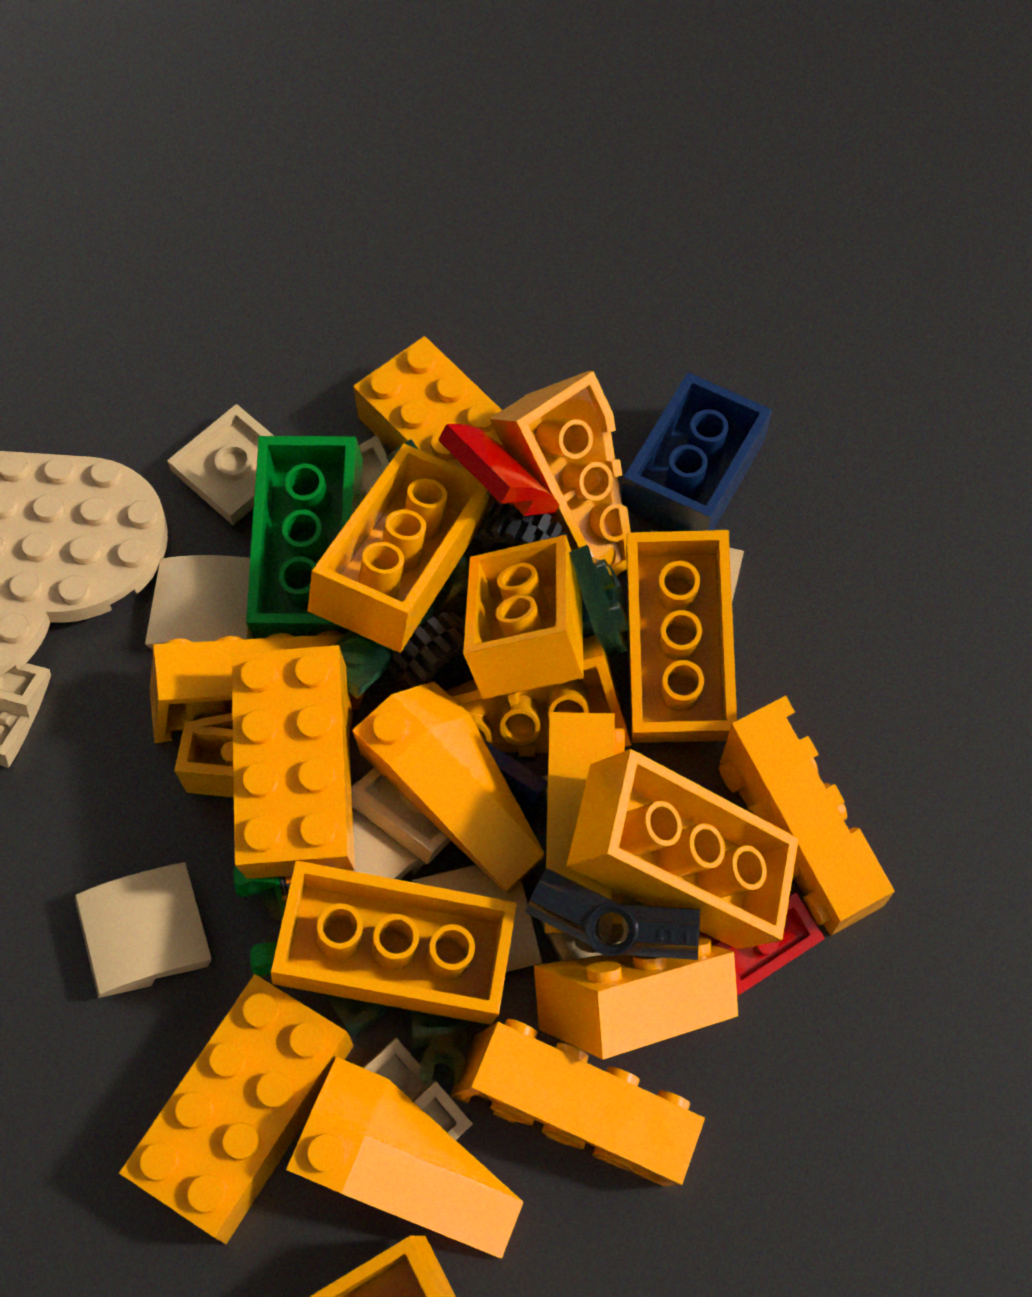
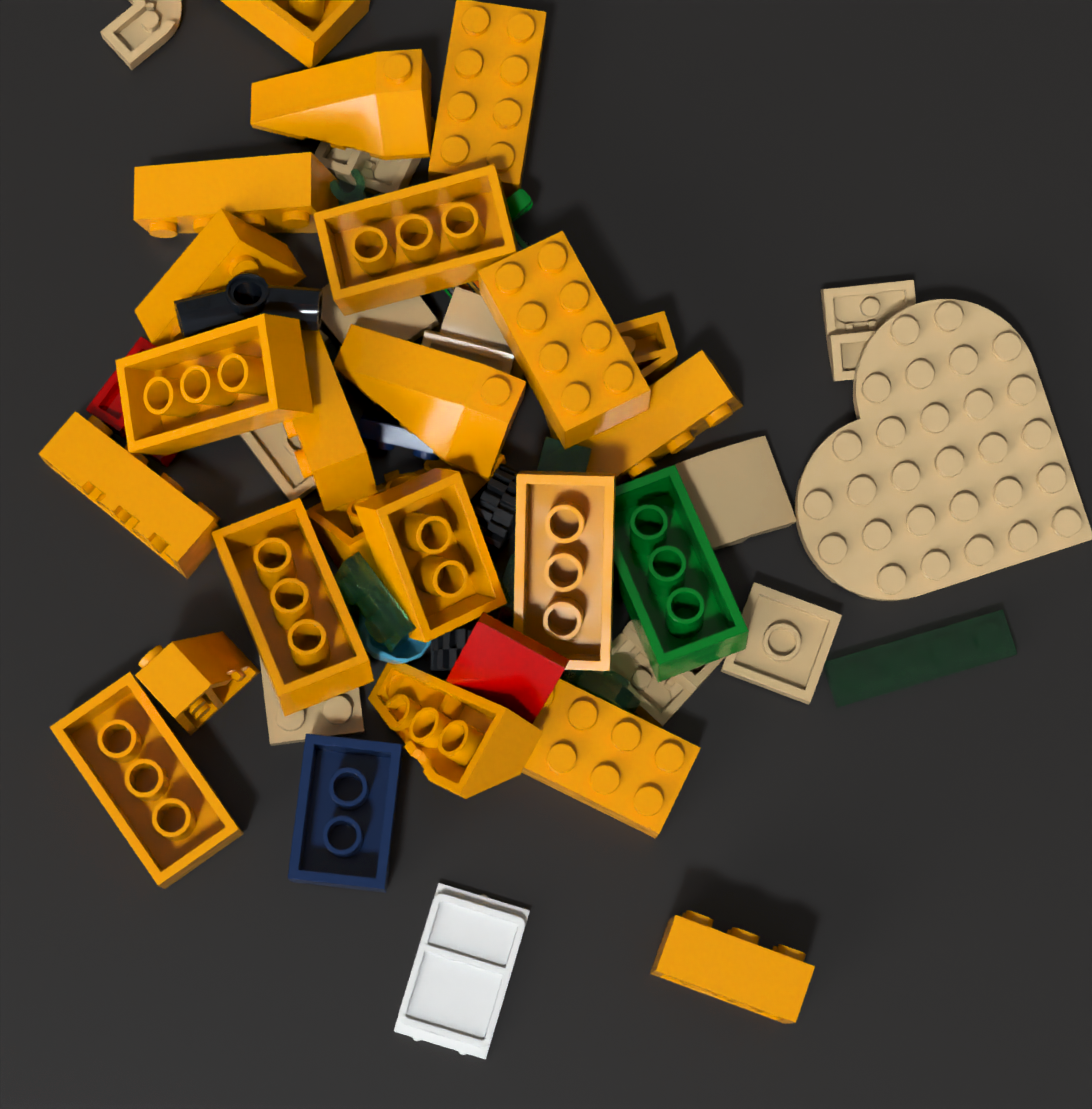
camera: 150 degrees right, 15 degrees up
(118, 413) = (919, 659): none -> clear green plate
(142, 929) = (634, 201): tan slope -> none
(415, 228) = (733, 967): none -> light orange brick
(639, 329) = (461, 971): none -> white piece
(806, 604) = (196, 676): none -> light orange wedge
(875, 551) = (146, 780): none -> light orange brick

